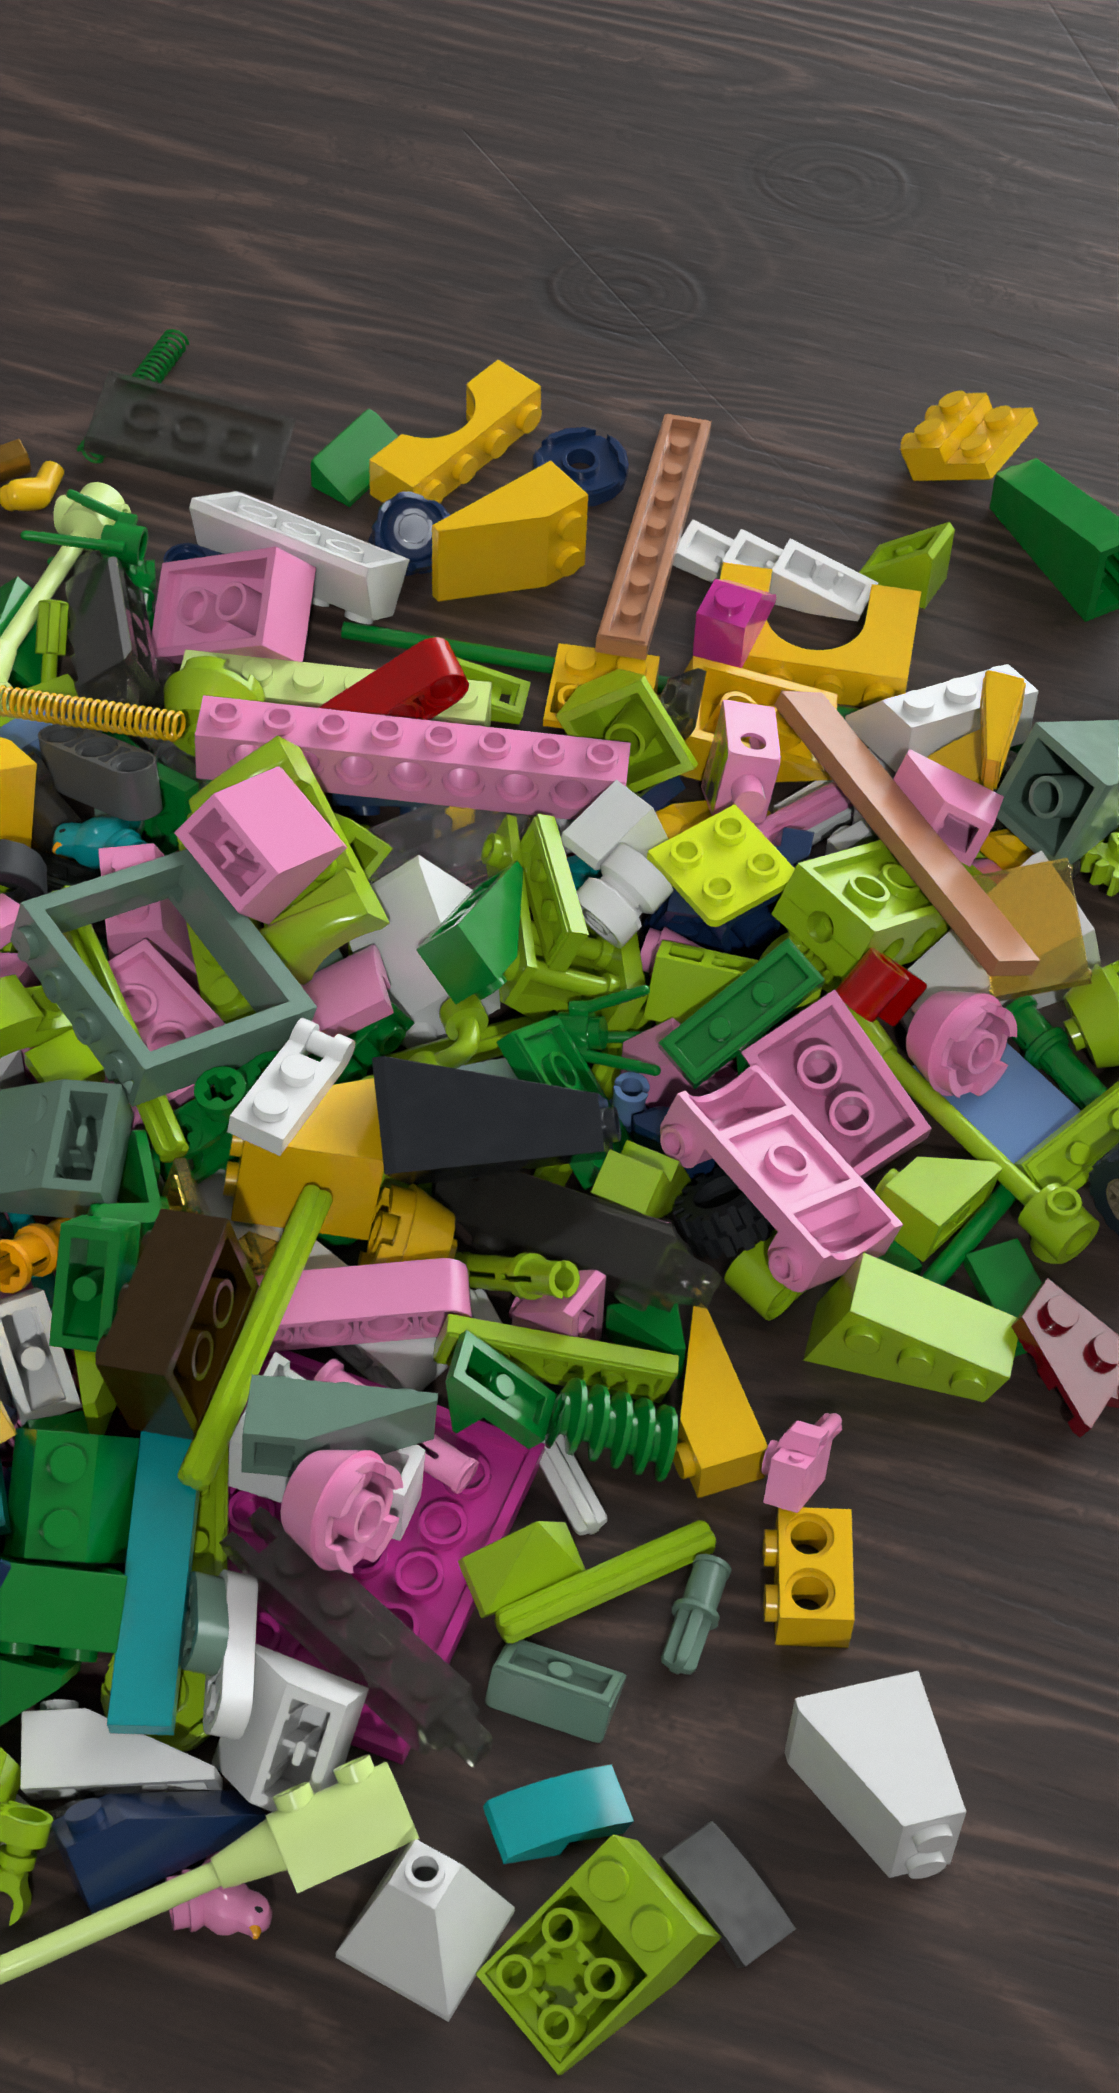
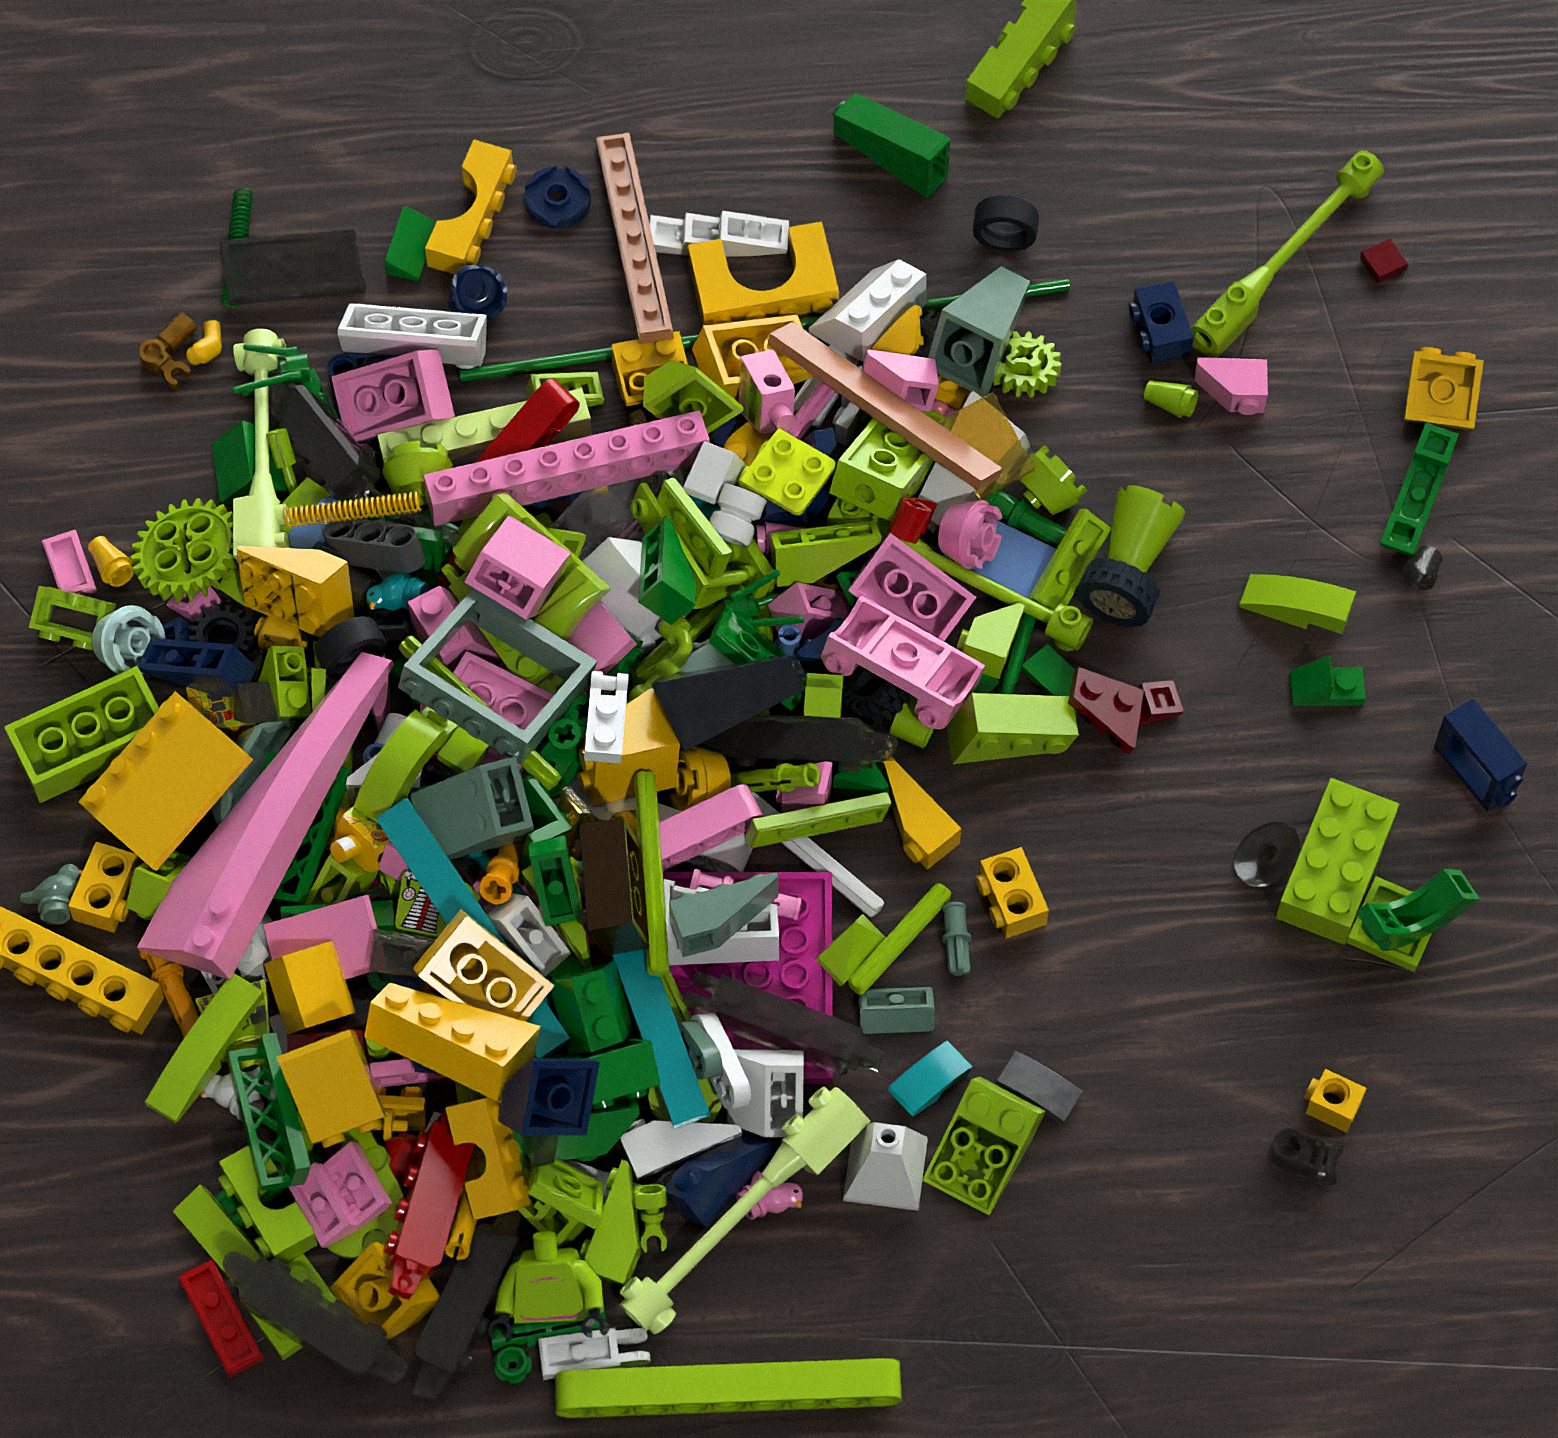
camera: 20 degrees left, 10 degrees up
(341, 1507) = (749, 957): bright pink cone -> none
(493, 1388) = (797, 853): green slope -> none
(512, 537) = (547, 274): yellow slope -> none
(614, 1425) = (868, 847): green piece -> none
(683, 698) = (714, 364): clear smoke slope -> none
(730, 621) = (715, 290): dark pink slope -> none
(741, 1013) = (840, 567): green tile -> none
(799, 1462) = (981, 830): bright pink piece -> none
(881, 1771) = (1097, 989): white slope -> none
(913, 561) = (801, 199): lime slope -> none
(965, 438) = (802, 91): yellow plate -> none
(999, 715) = (912, 303): yellow slope -> none

